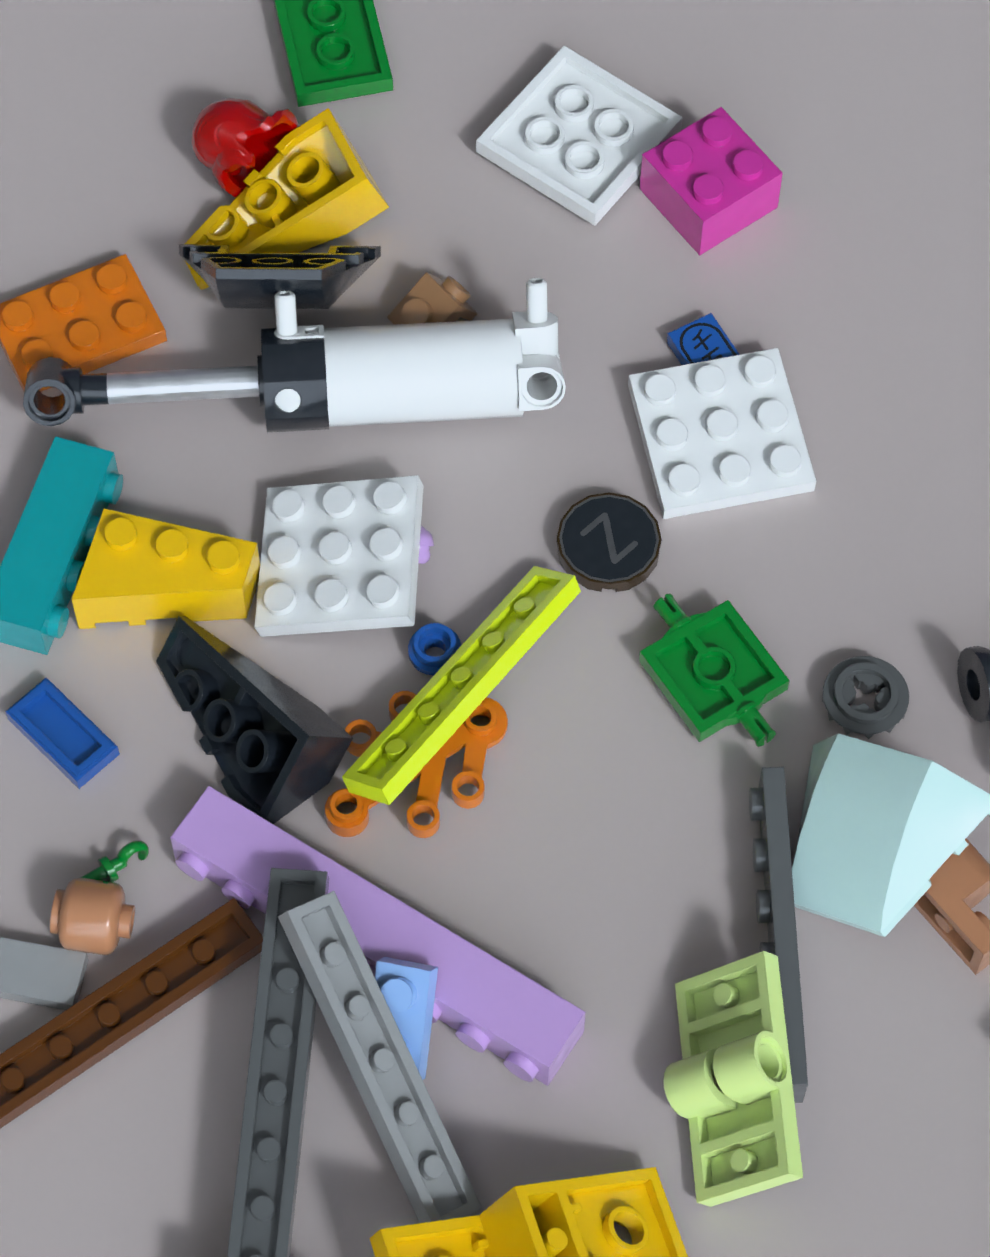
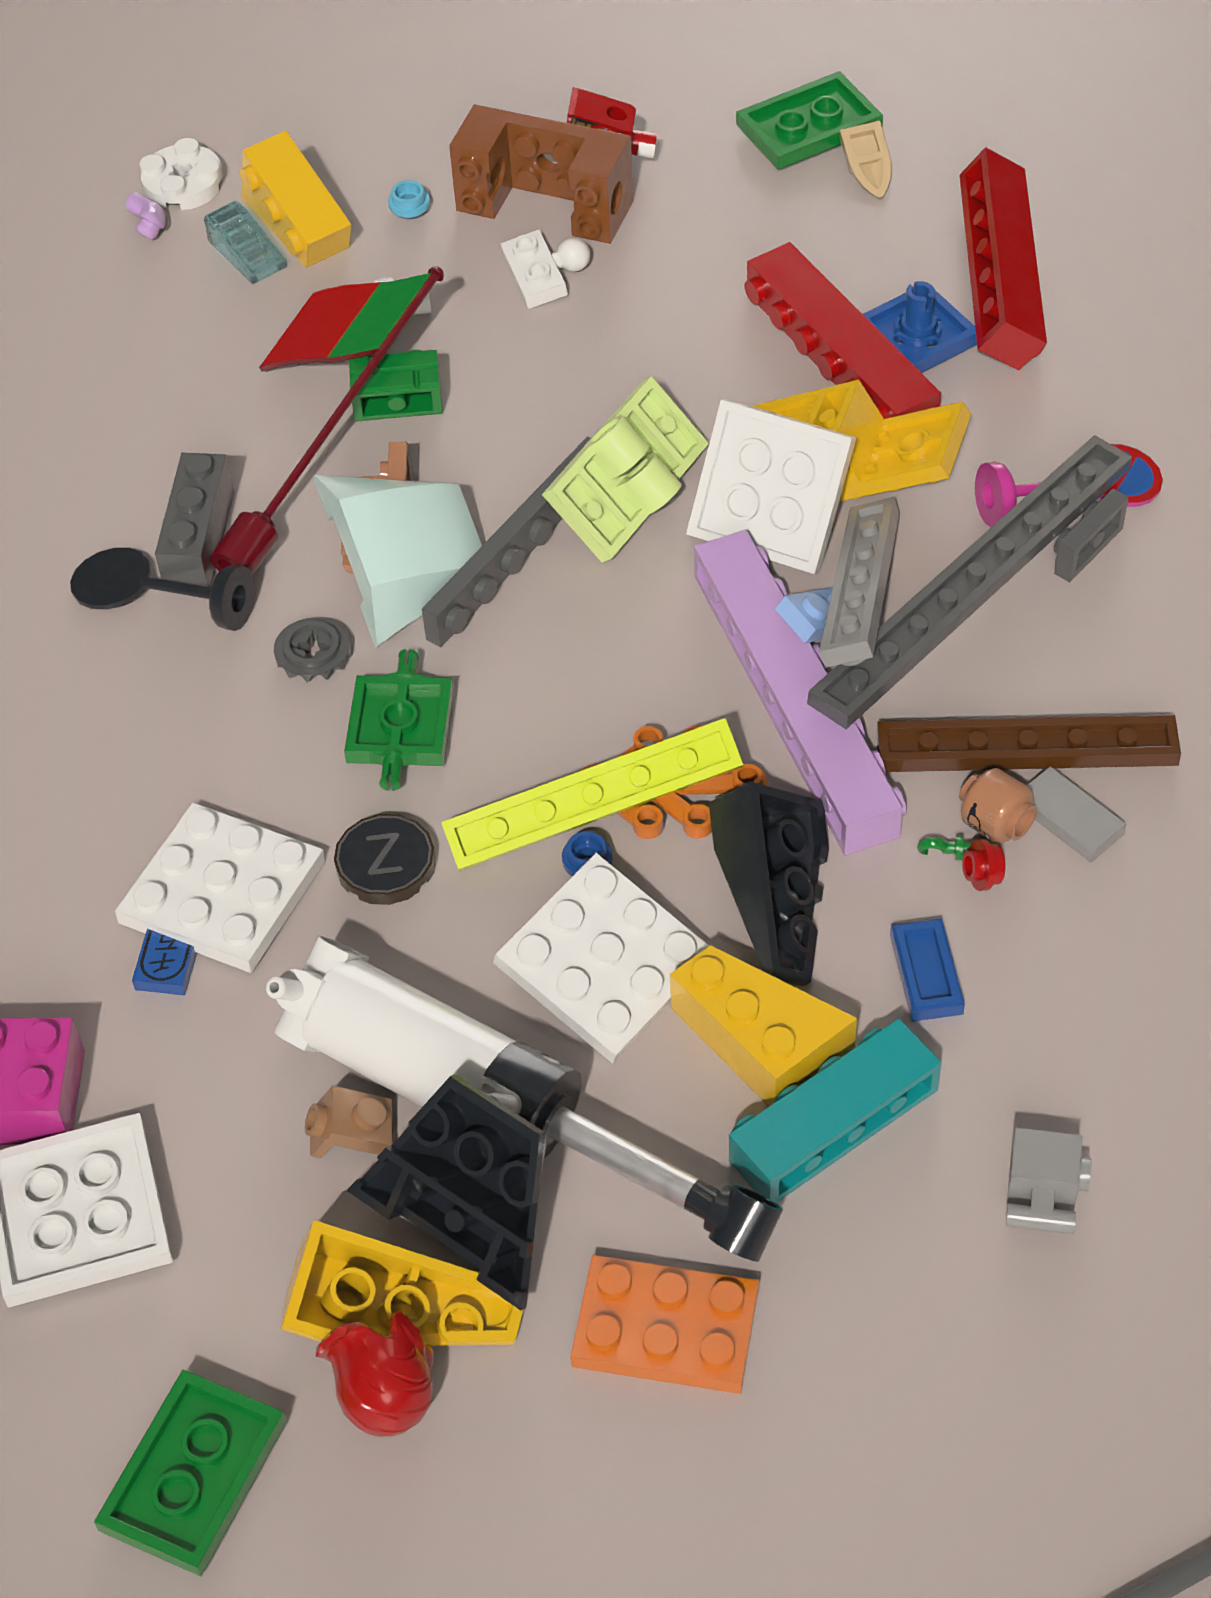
camera: 140 degrees left, 10 degrees down
(70, 853) = (984, 865): none -> red plate
(559, 1127) = (772, 480): none -> white plate

